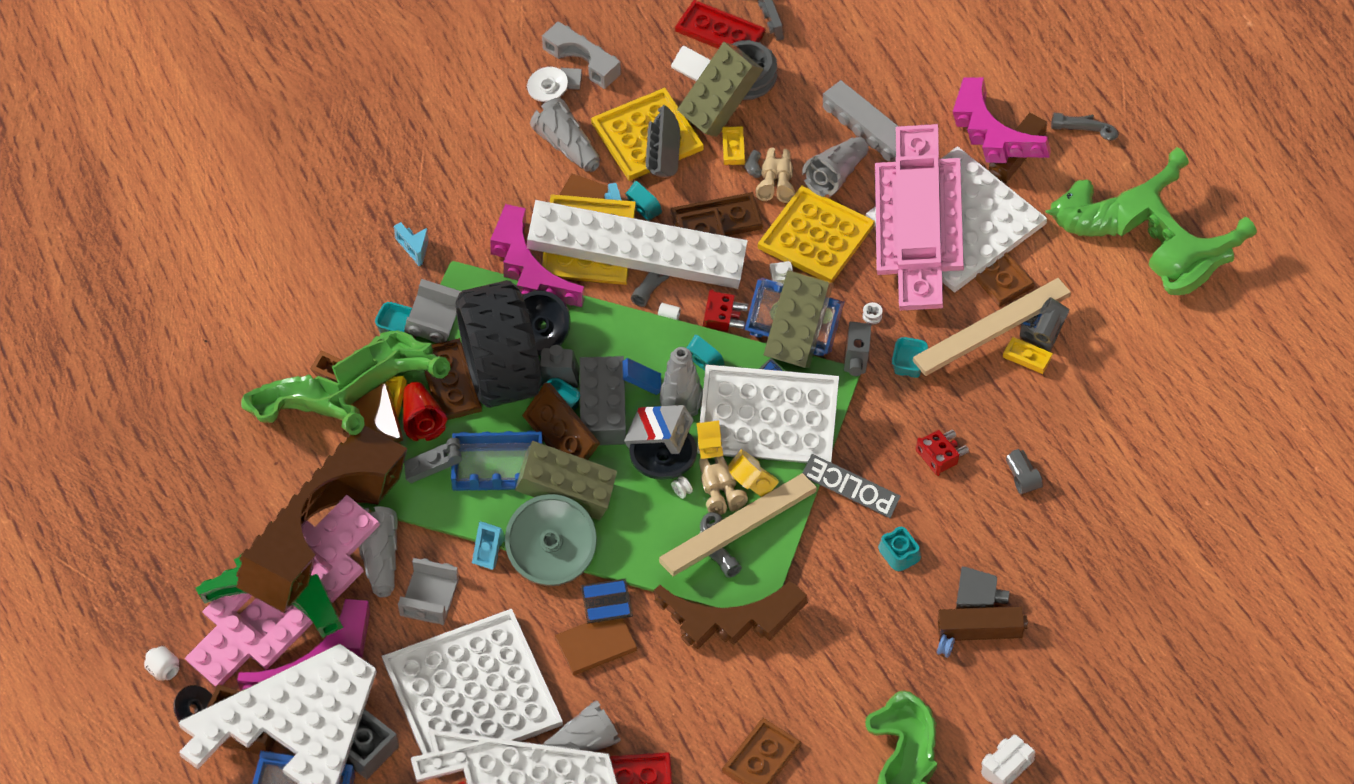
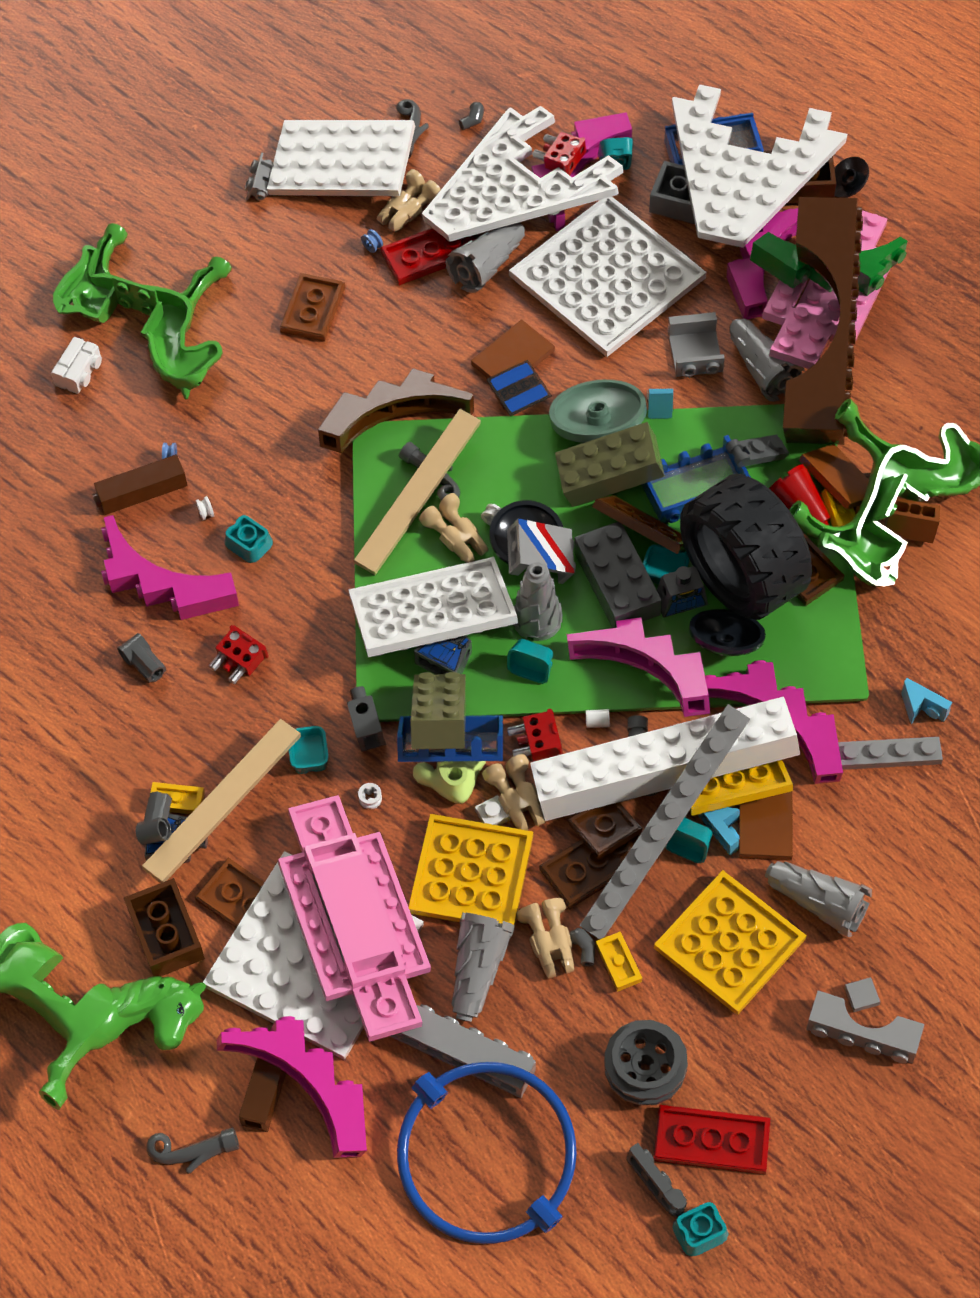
camera: 160 degrees right, 5 degrees up
(161, 663) = (905, 206): white head -> none
(392, 317) = (887, 605): teal piece -> none
(432, 312) = (849, 612): light grey panel -> none
(455, 221) = (890, 753): none -> light grey plate
(547, 78) = (883, 956): white dish -> none
(603, 319) = (655, 655): none -> arch
(641, 376) = (587, 610): blue tile -> none
(658, 195) = (665, 822): none -> light grey plate
(663, 144) = (696, 910): dark grey brick -> none
(690, 63) = (718, 1066): white slope -> none
(710, 439) = (478, 550): yellow brick -> none
(720, 89) = (659, 998): olive brick -> none
(750, 475) = (430, 538): yellow brick -> none
(754, 269) = (519, 799): none -> tan piece
(851, 485) = (320, 580): dark grey sticker -> none
(903, 94) = (541, 1212): none -> blue piece
(929, 584) = (204, 508): none -> white bush
(968, 512) = (188, 593): none -> dark pink arch
(979, 590) = (151, 513): dark grey torso -> none
(1066, 256) = (164, 928): none -> reddish brown brick

